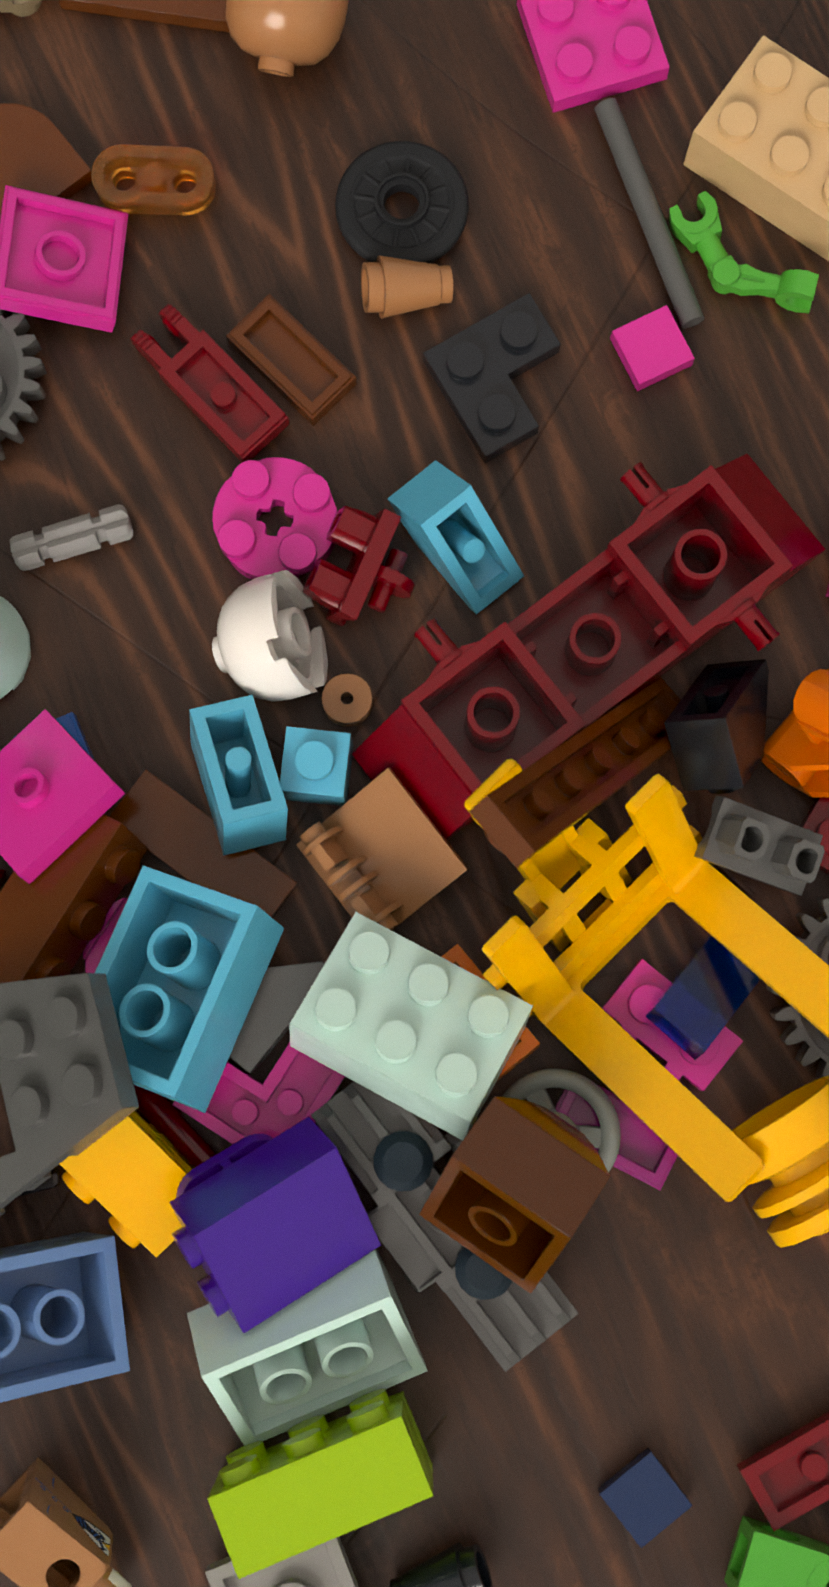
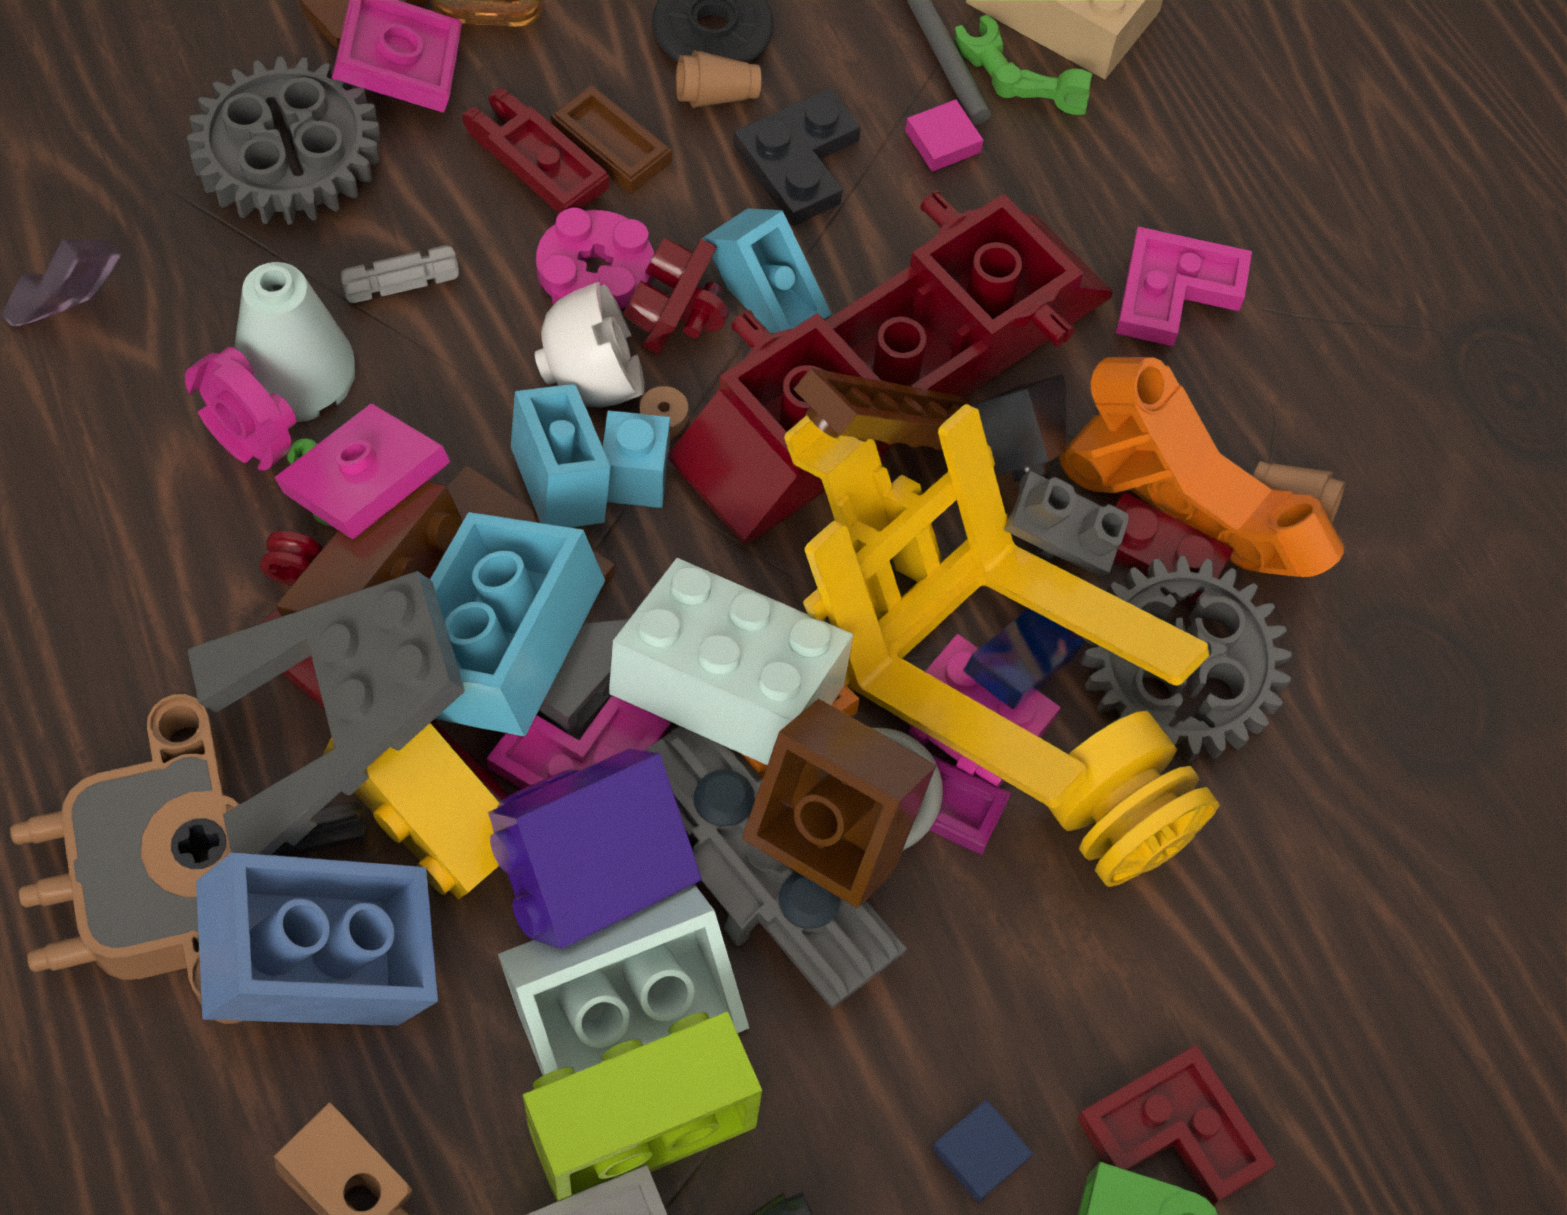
camera: 10 degrees left, 20 degrees down
(382, 853) = (701, 522): medium nougat hinge -> none

